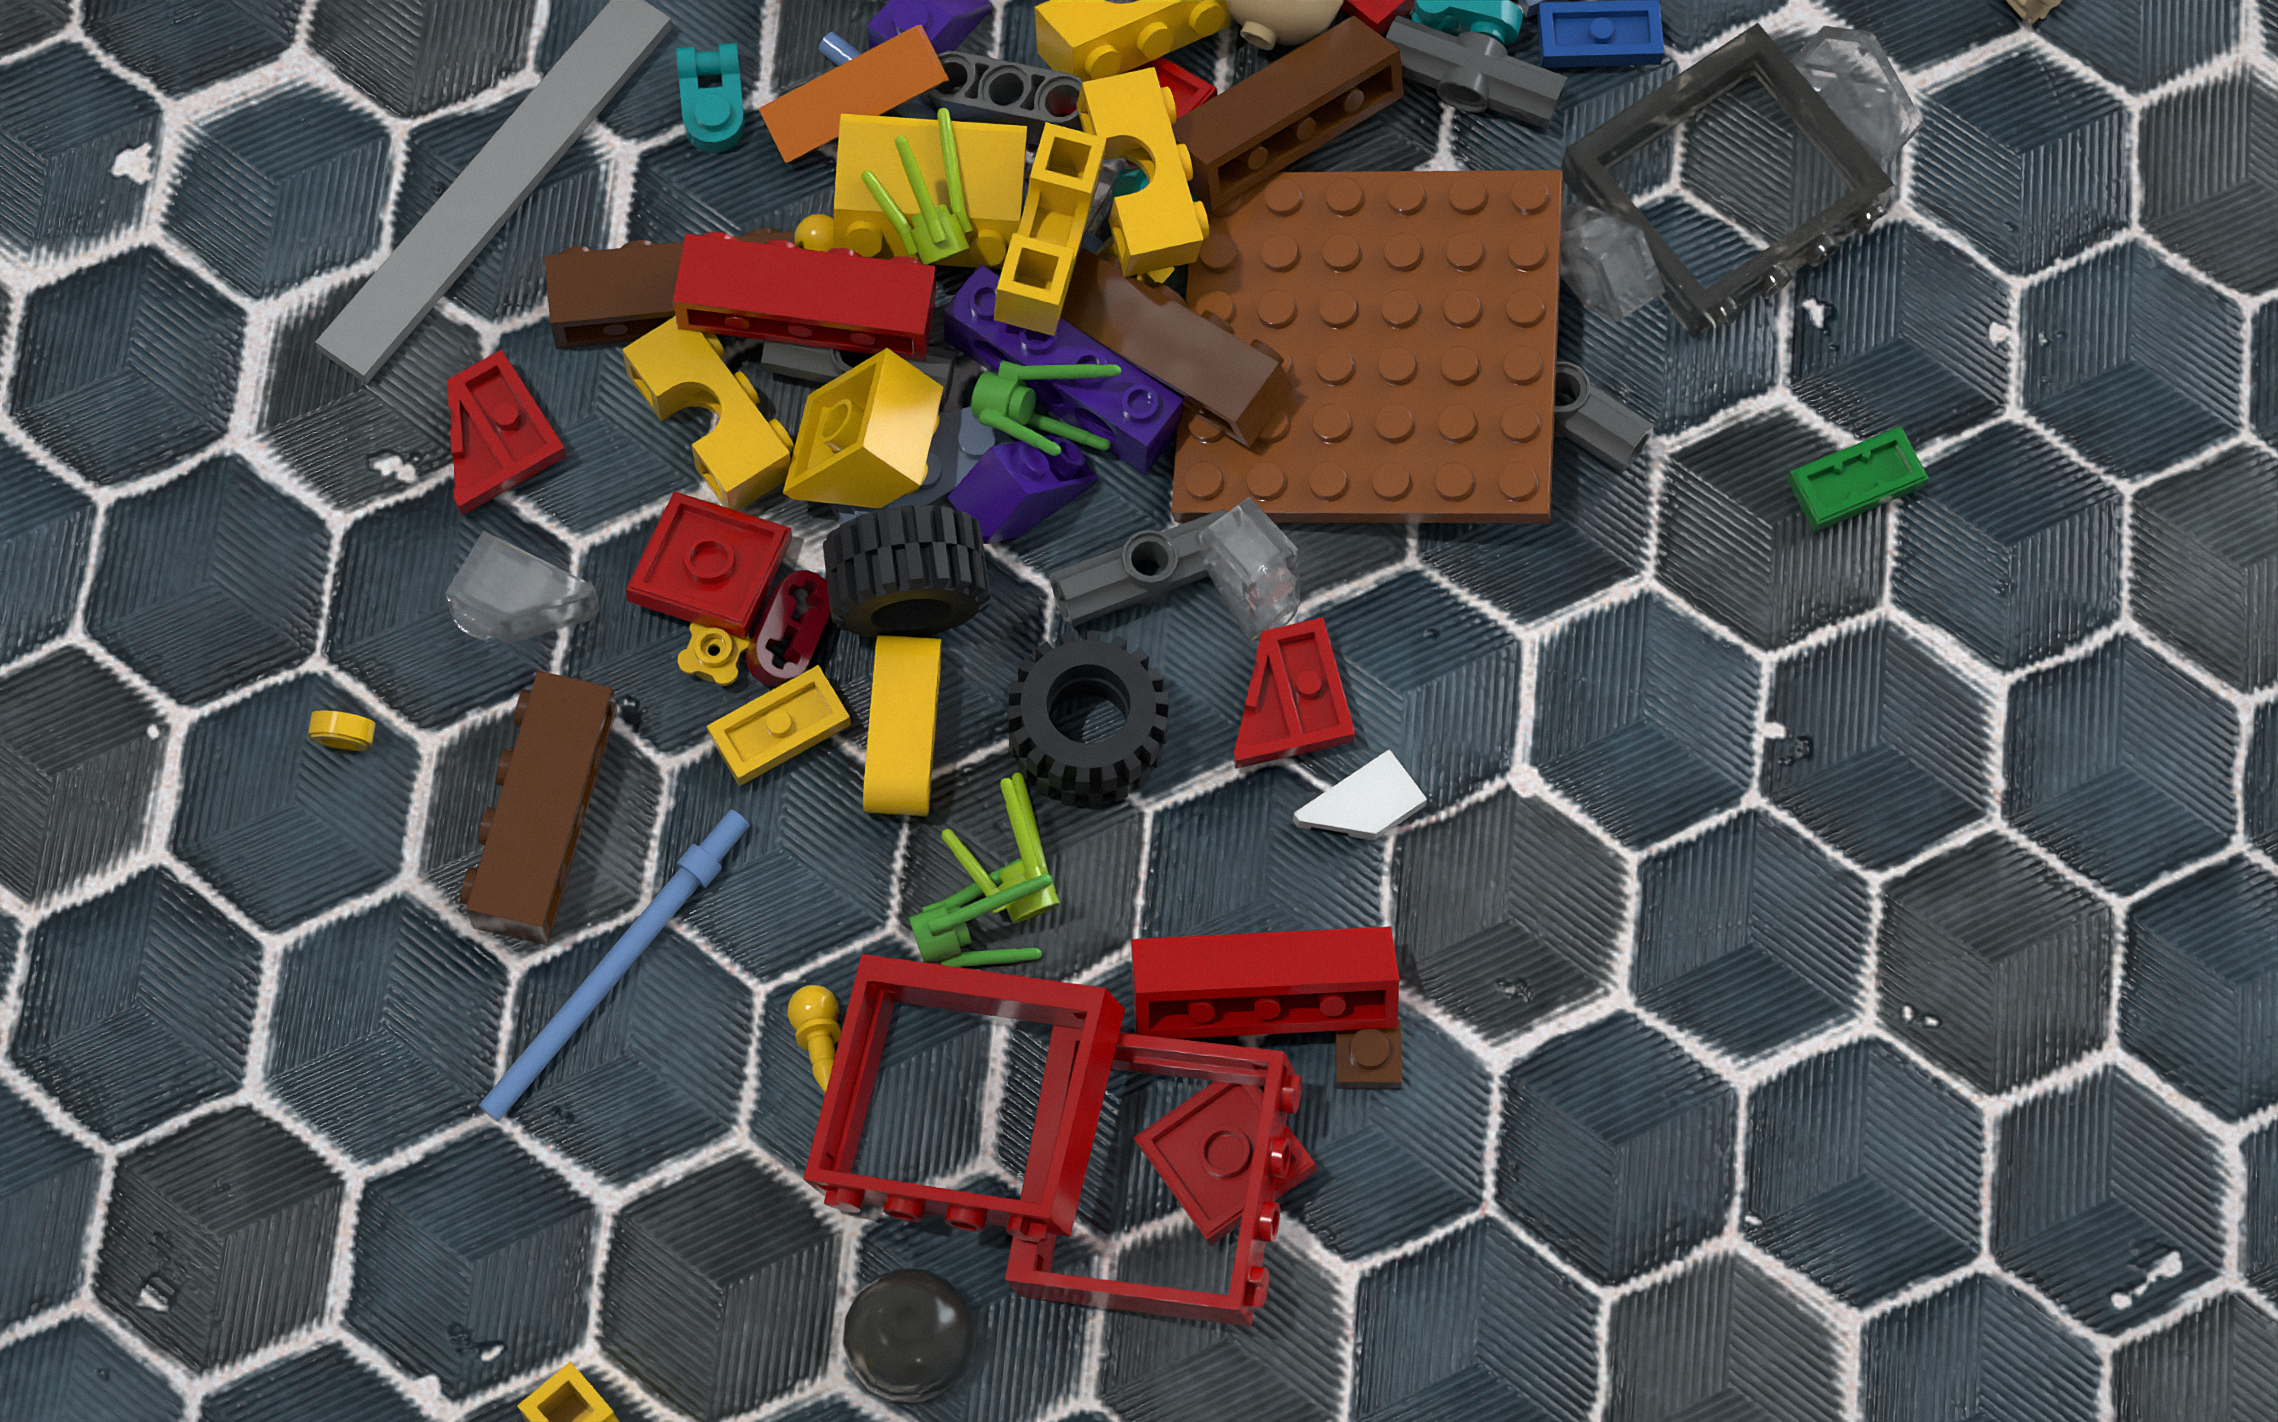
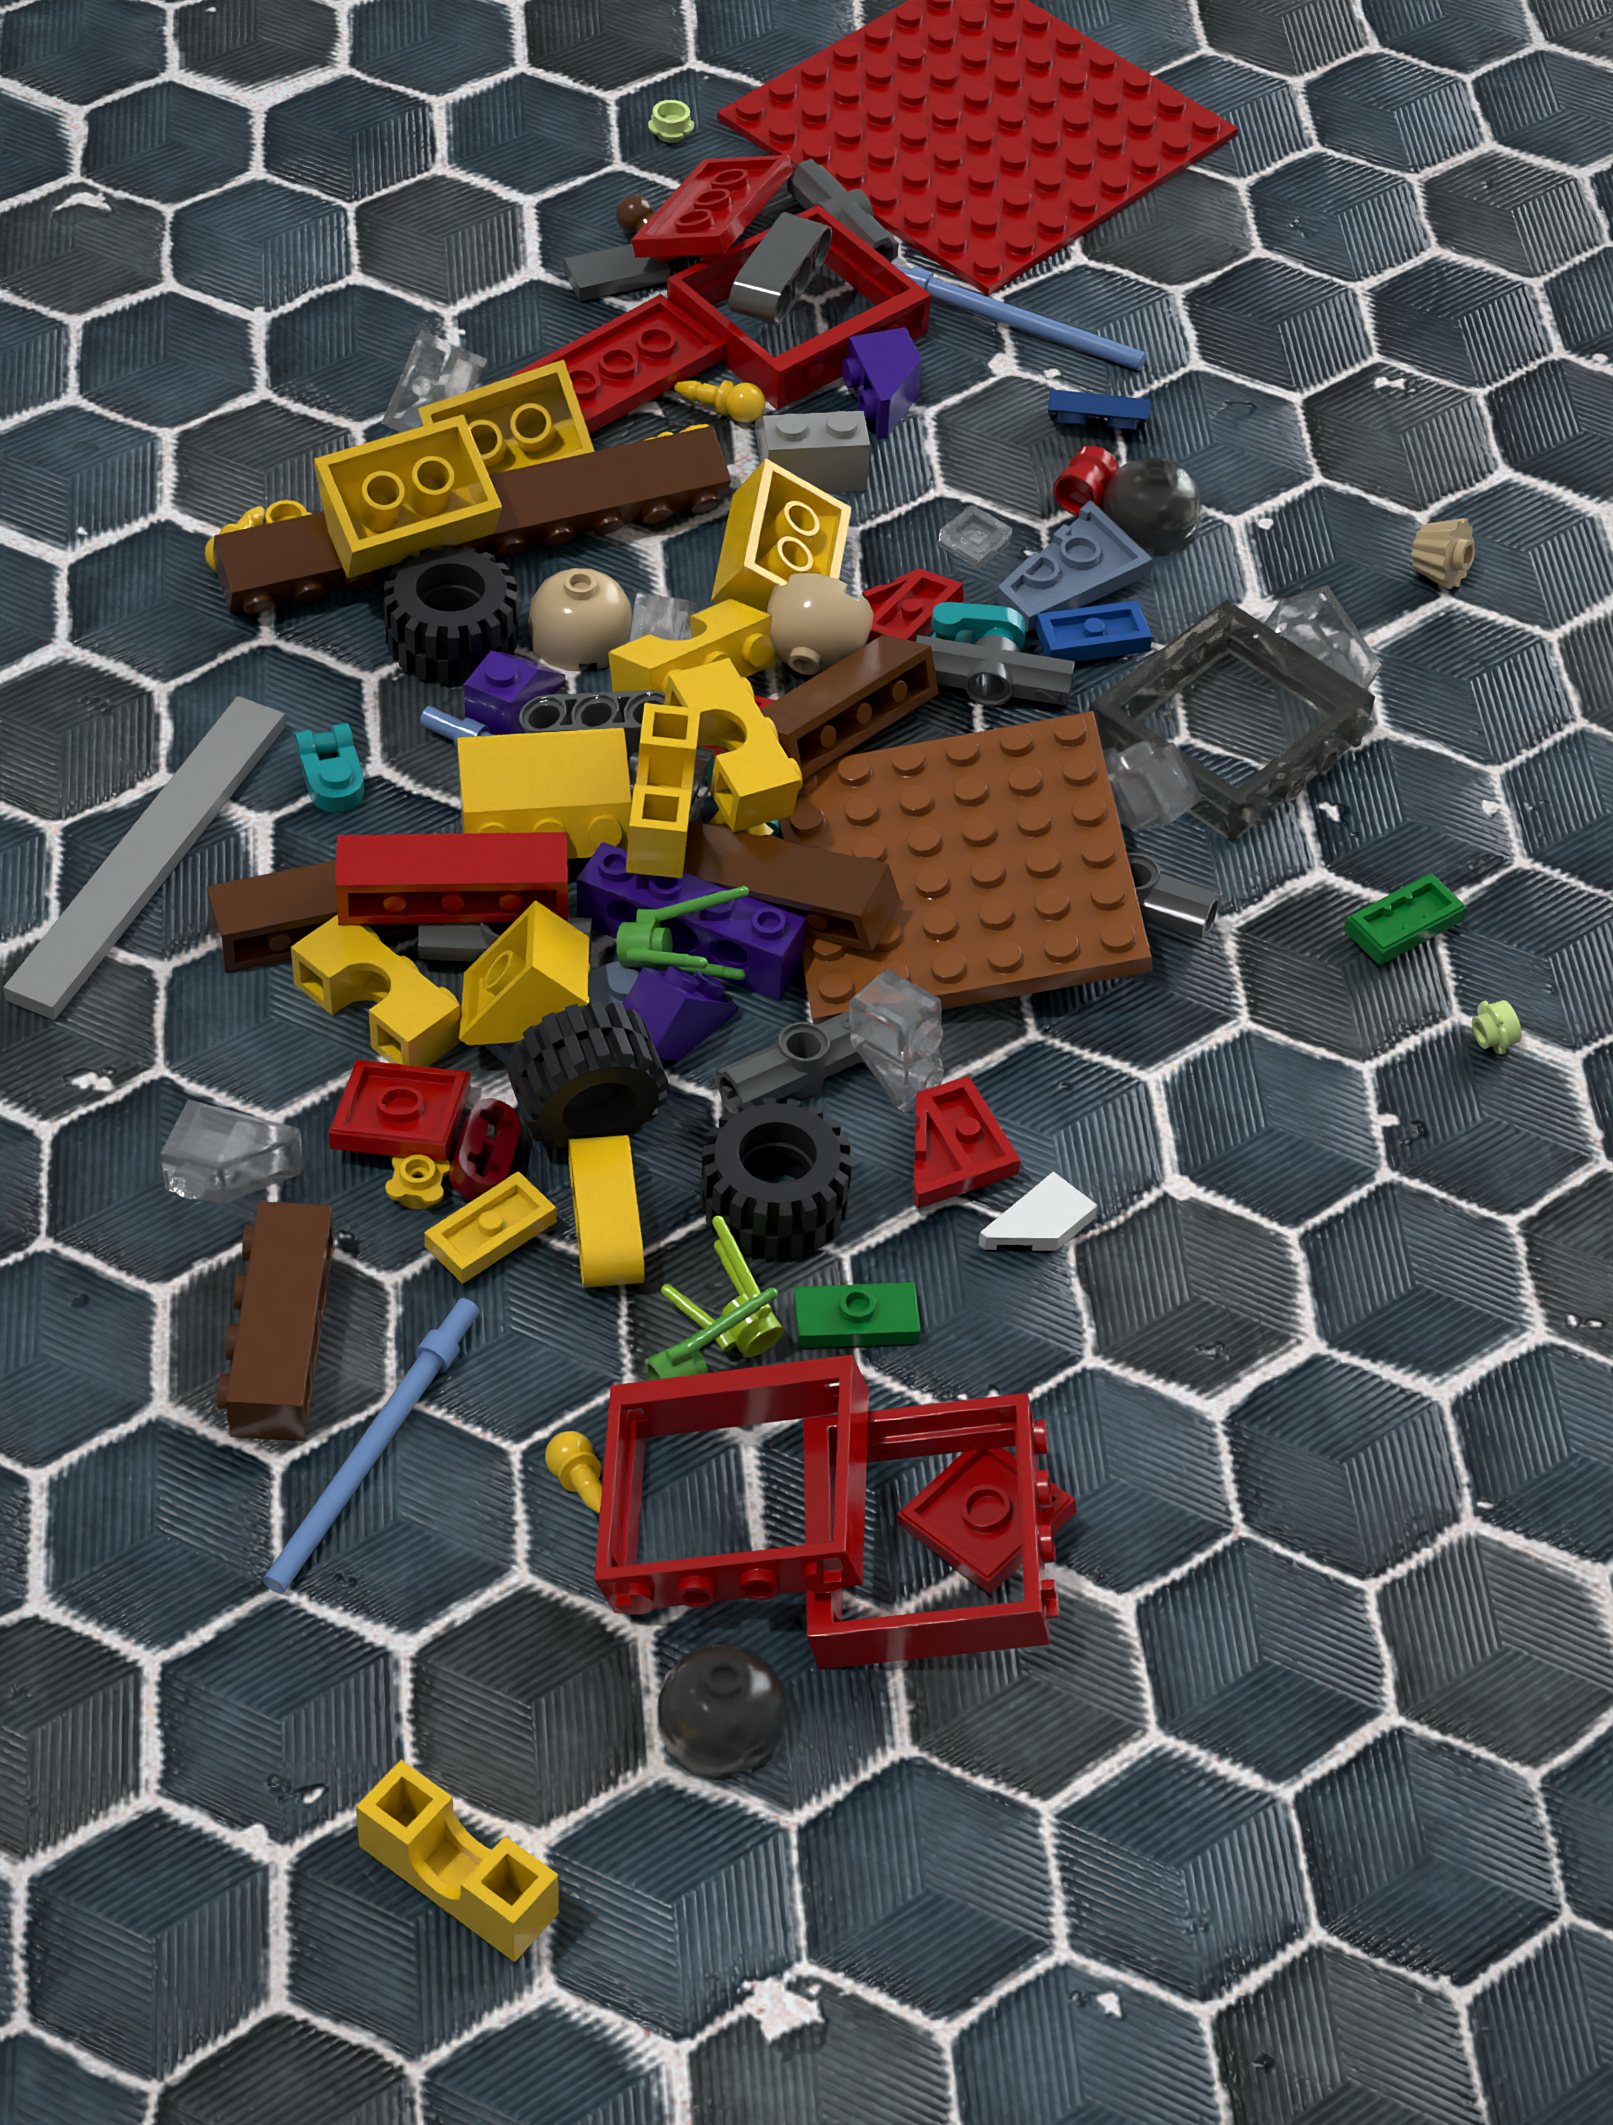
camera: 10 degrees left, 20 degrees down
(341, 730) = (78, 1283): yellow tile -> none
(495, 432) = (184, 1035): red wing -> none
(862, 86) = (431, 757): orange tile -> none
(936, 231) = (560, 807): lime plant -> none
(1142, 890) = (856, 1315): none -> green plate
(1265, 983) = (1018, 1353): red brick -> none
(1368, 1058) = (1096, 1417): reddish brown plate -> none
(1921, 636) = (1496, 1026): none -> yellowish green plate

